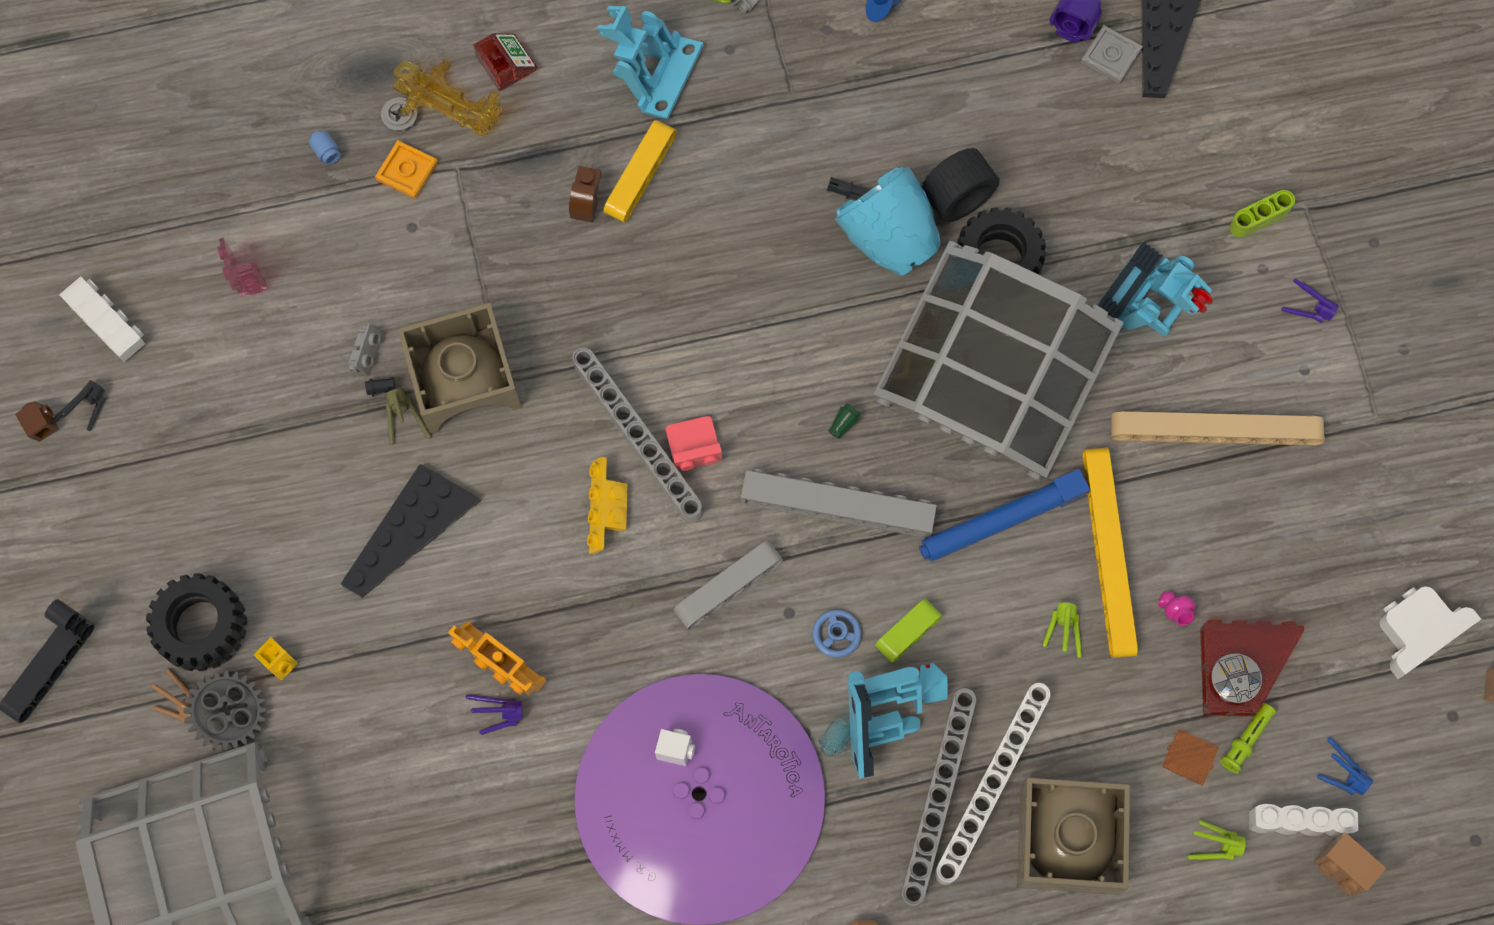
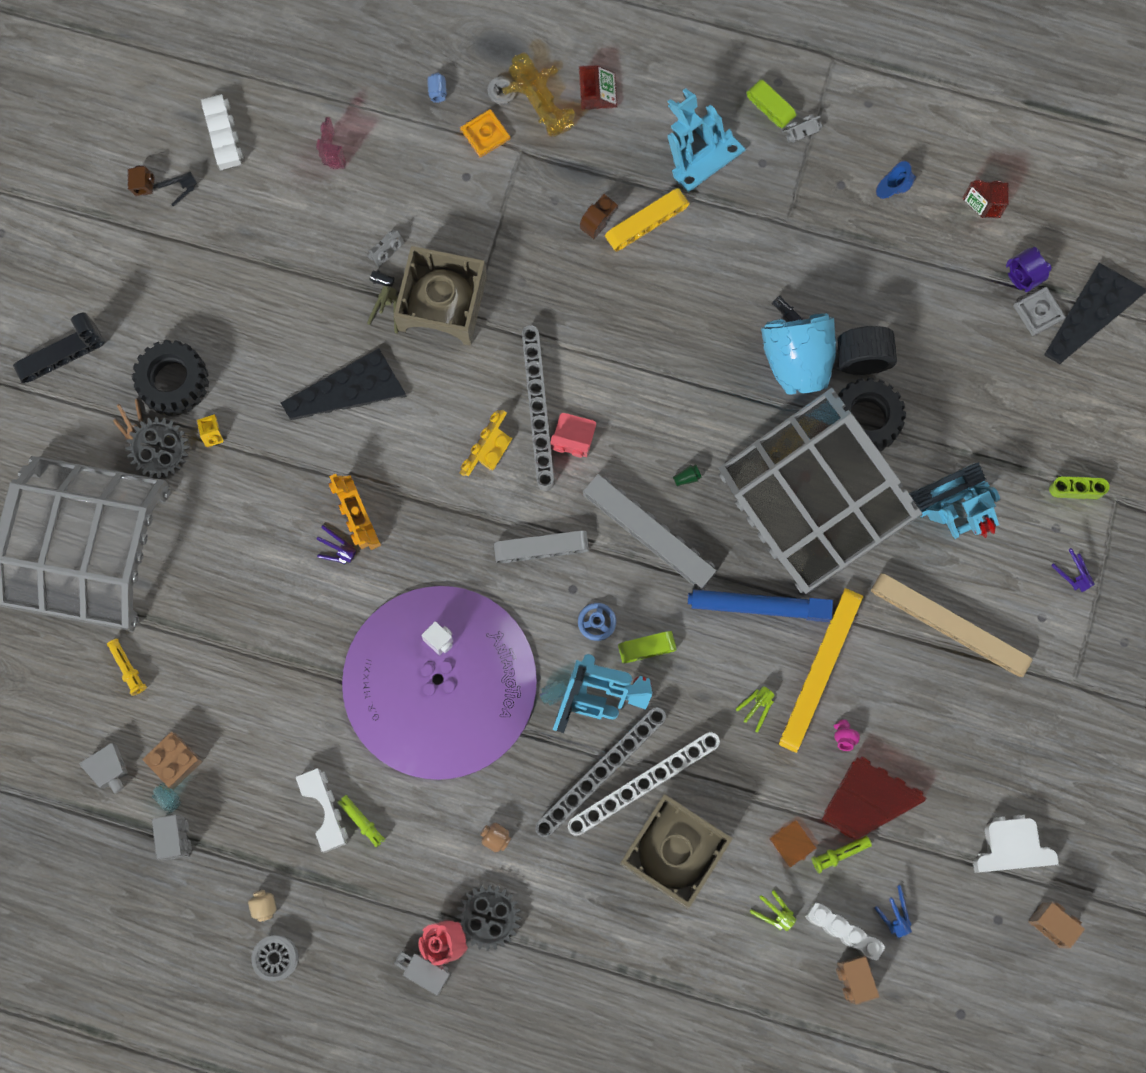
camera: 30 degrees right, 5 degrees up
(1236, 678) = (855, 807): light grey dish -> none

